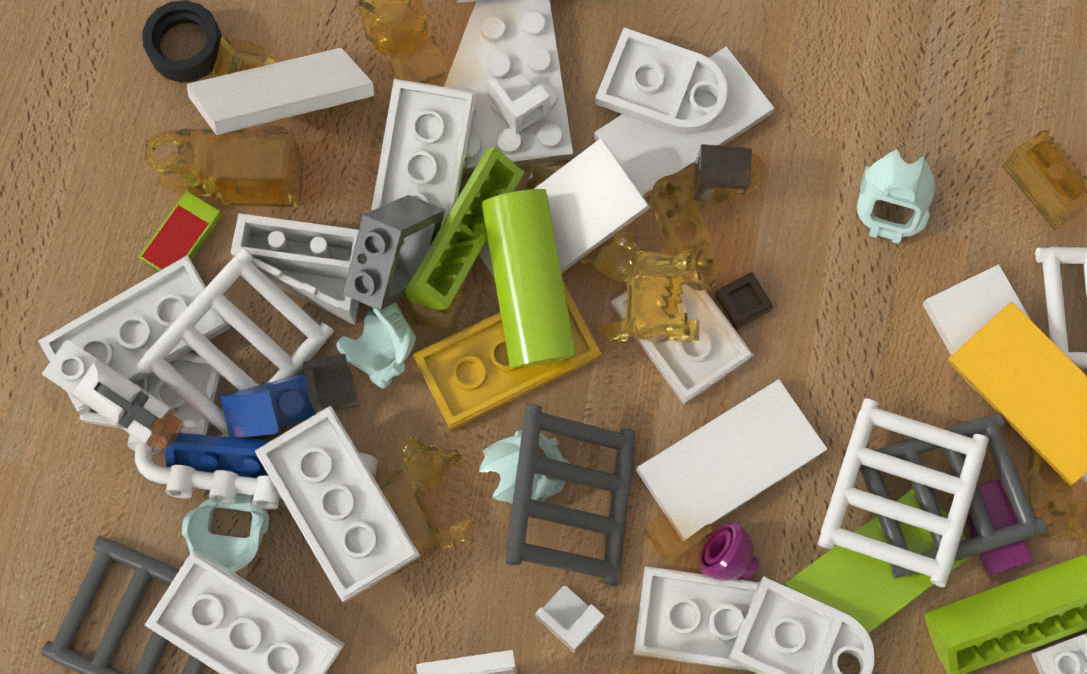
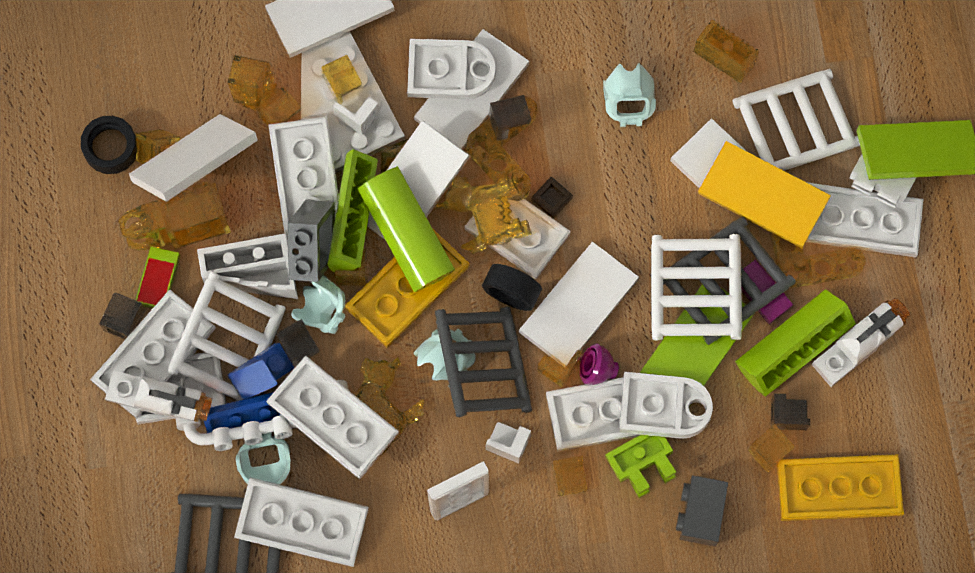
camera: 20 degrees left, 0 degrees up
(113, 269) = (122, 316): none -> clear smoke panel
(513, 47) = (340, 77): none -> clear yellow panel
(646, 405) = (512, 287): none -> black tyre

